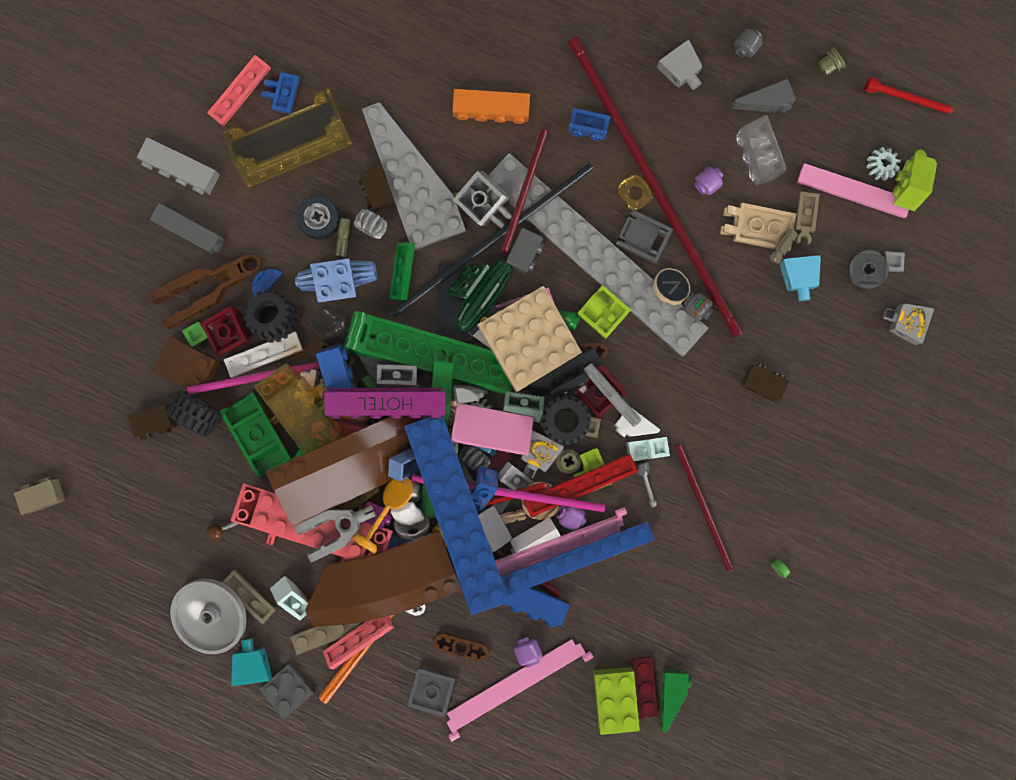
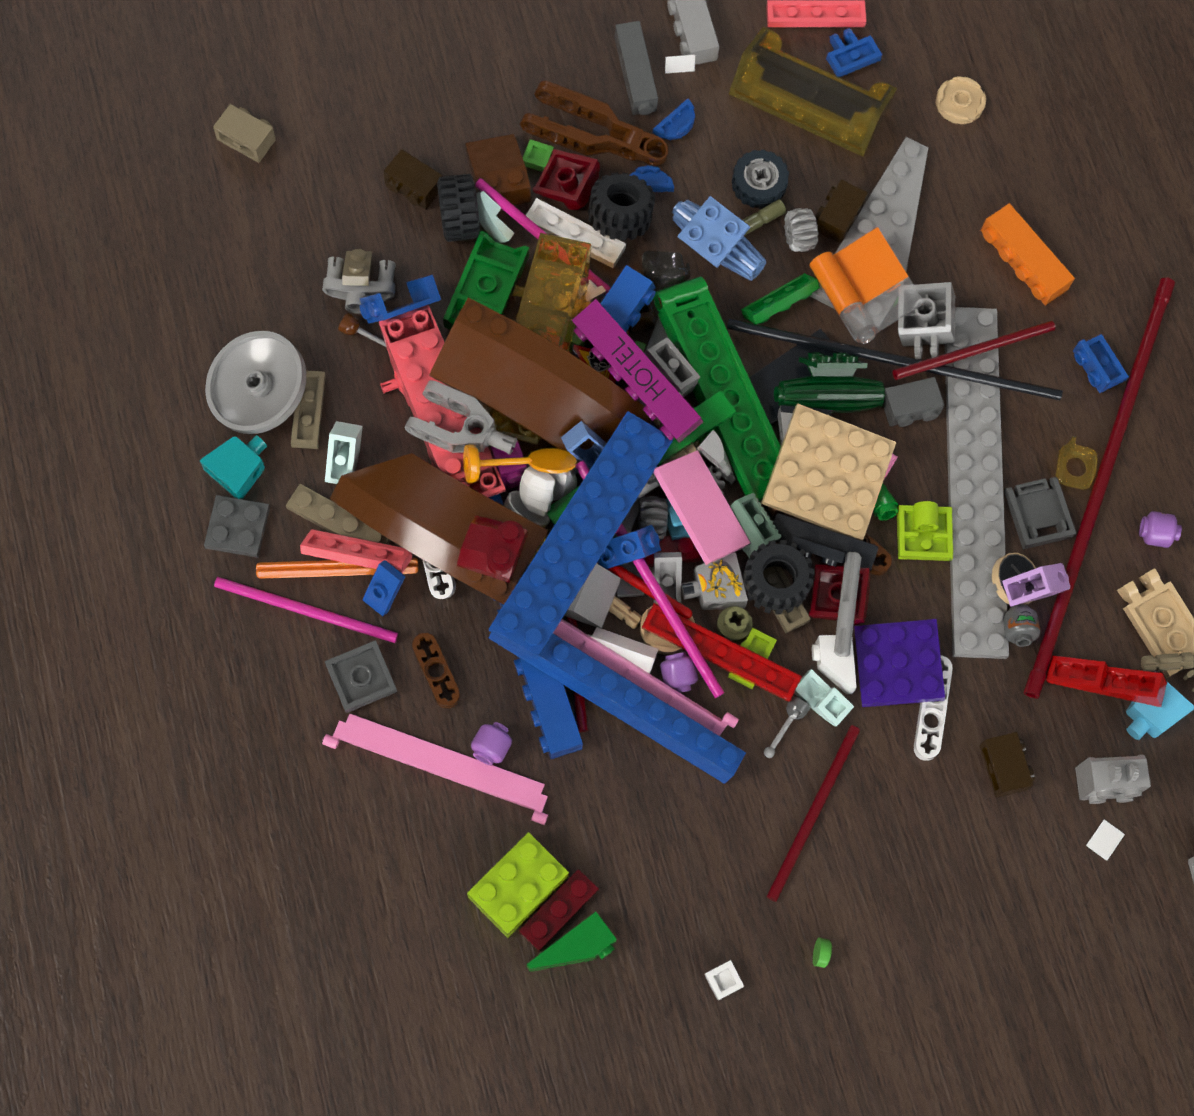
camera: 45 degrees right, 15 degrees down
(183, 501) = (357, 268): none -> dark tan plate
(200, 511) = (333, 284): none -> light grey connector
(205, 200) = (680, 64): none -> white sticker
(211, 398) = (491, 223): none -> light aqua slope
(233, 495) = (422, 291): none -> blue panel
(242, 234) = (677, 122): none -> blue plate
(364, 54) = (960, 100): none -> tan tile
(367, 690) = (305, 609): none -> dark pink piece
(392, 641) = (383, 588): none -> blue plate
(424, 573) = (492, 547): none -> dark red slope
(437, 218) = (866, 285): none -> orange door
(664, 391) = (899, 663): none -> dark purple plate
(693, 274) = (1046, 581): none -> lavender torso
(704, 391) = (939, 710): none -> white beam
(752, 631) = (724, 980): none -> white plate
(766, 288) = (1110, 681): none -> red slope
(820, 335) = (1112, 778): none -> light grey hinge
(843, 364) = (1105, 840): none -> white sticker

